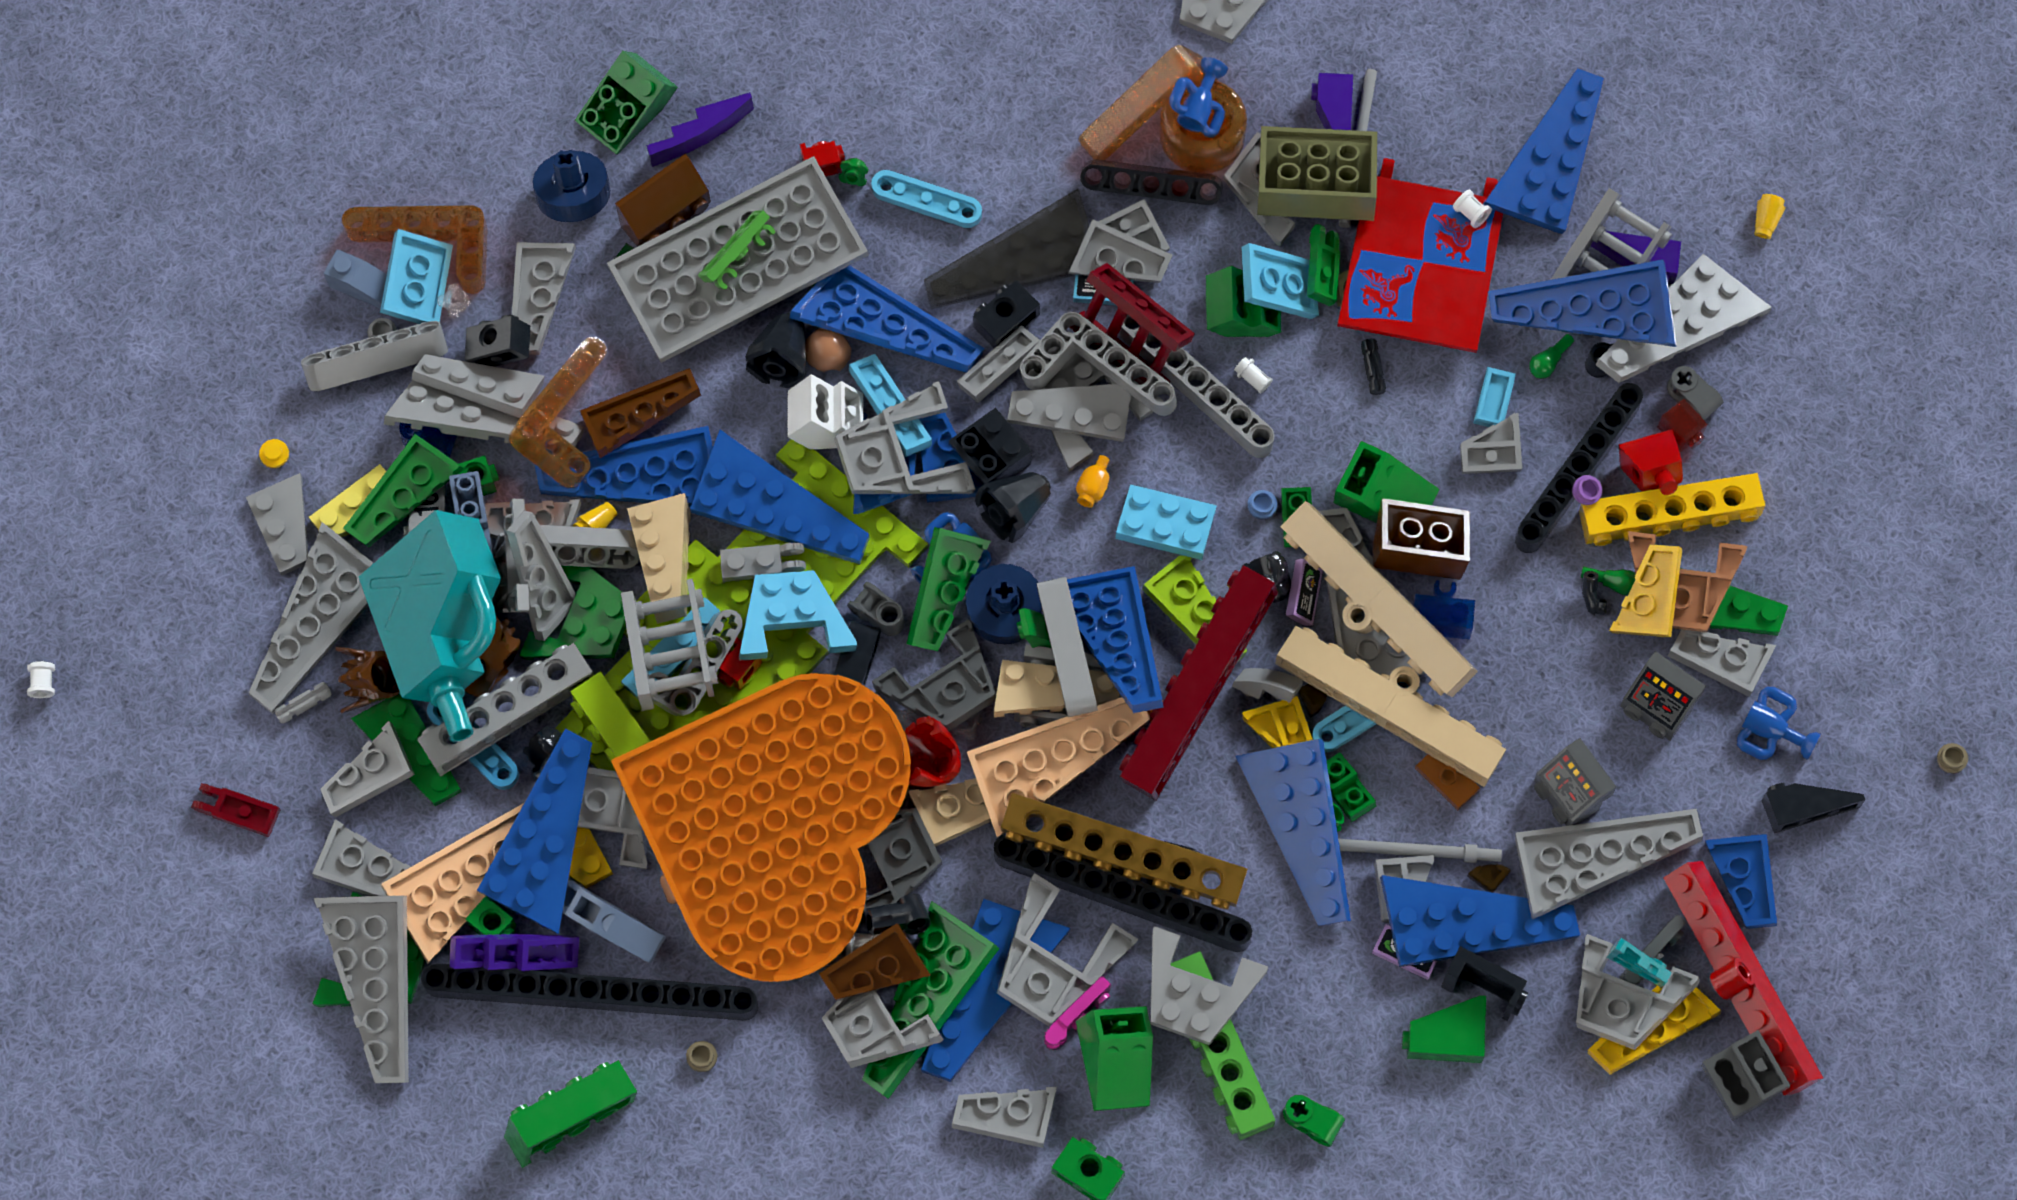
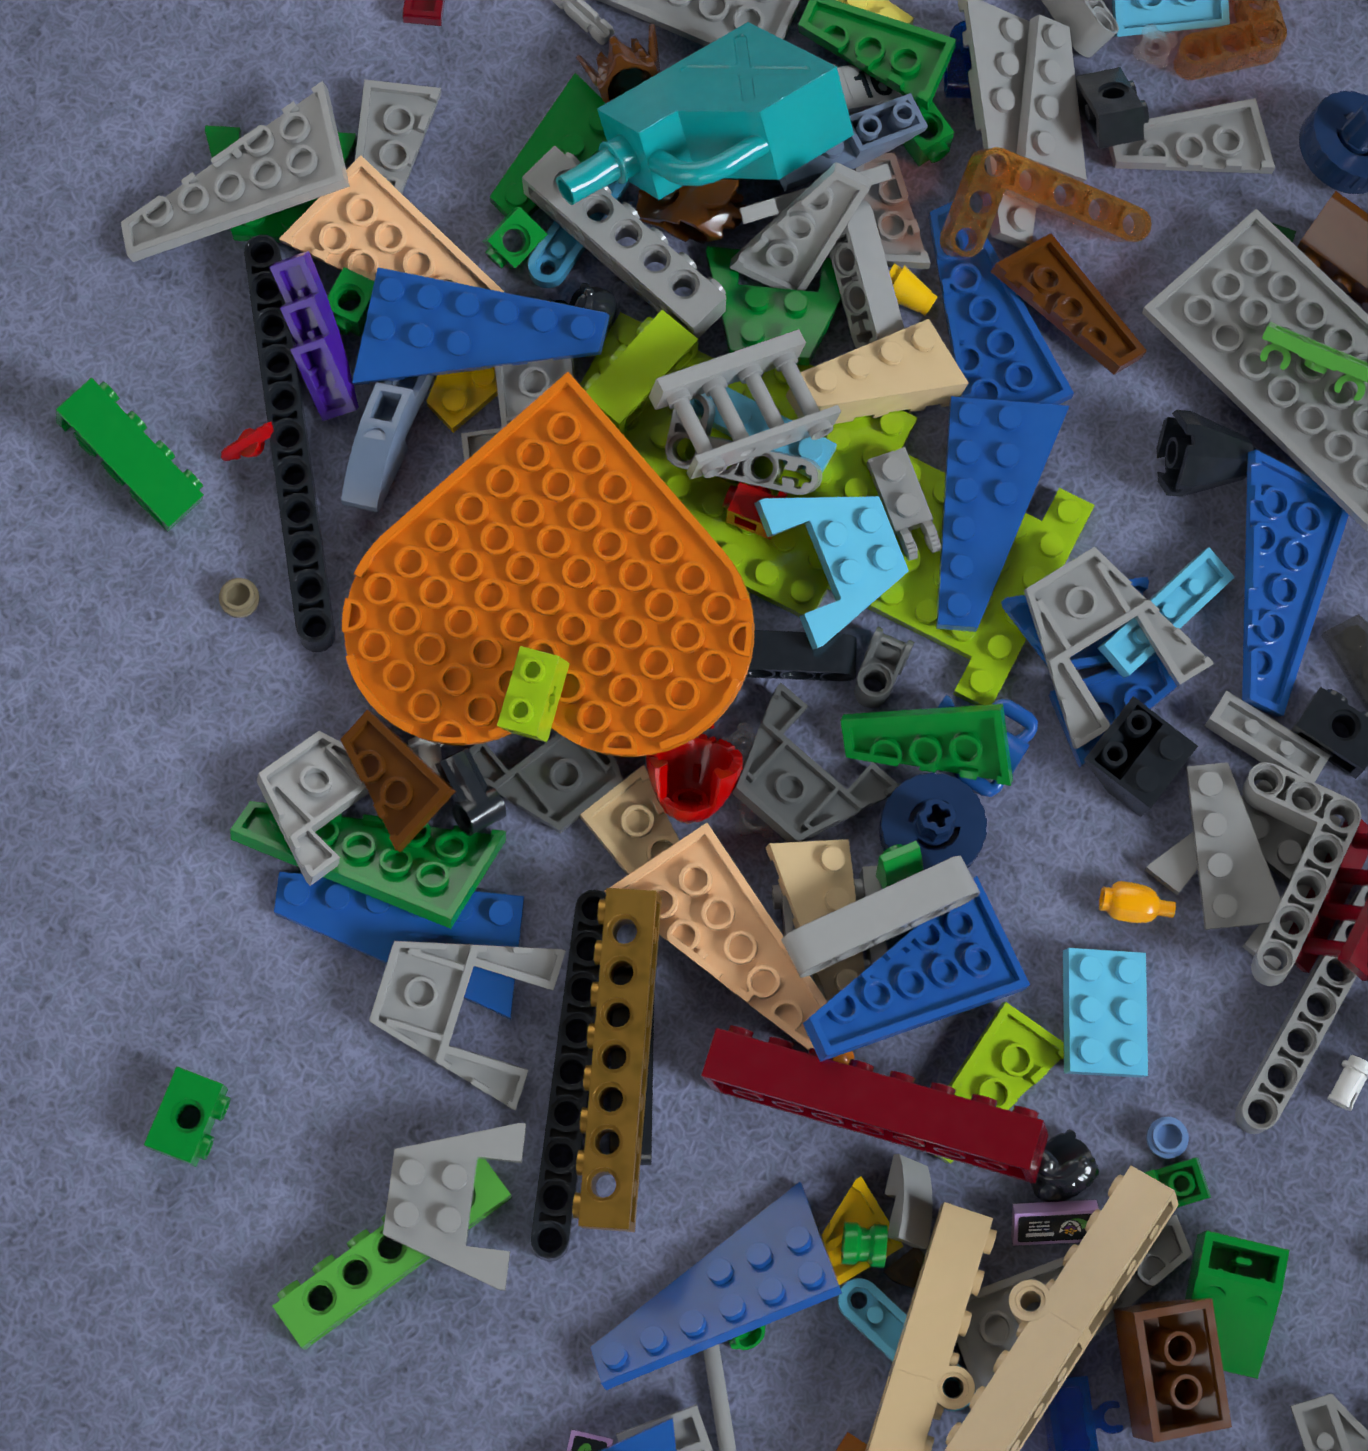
camera: 70 degrees right, 5 degrees up
(369, 774) = (507, 112): light grey wing -> none
(478, 779) = (525, 226): none -> green brick
(584, 1020) = (249, 444): none -> red piece
(822, 411) = (1131, 528): white piece -> none
(827, 350) = (1221, 517): nougat hair -> none
(847, 842) = (533, 694): none -> lime brick
(1007, 1116) = (242, 998): light grey wing -> none
(1013, 503) = (1074, 805): black cone -> none
(1095, 996) = (393, 1052): dark pink hinge -> none
(1117, 1056) = (341, 1118): green slope -> none
(1292, 718) = (864, 1244): none -> green wheel
(1317, 1121) = (318, 1408): green piece -> none
(1347, 788) = (793, 1344): green slope -> none

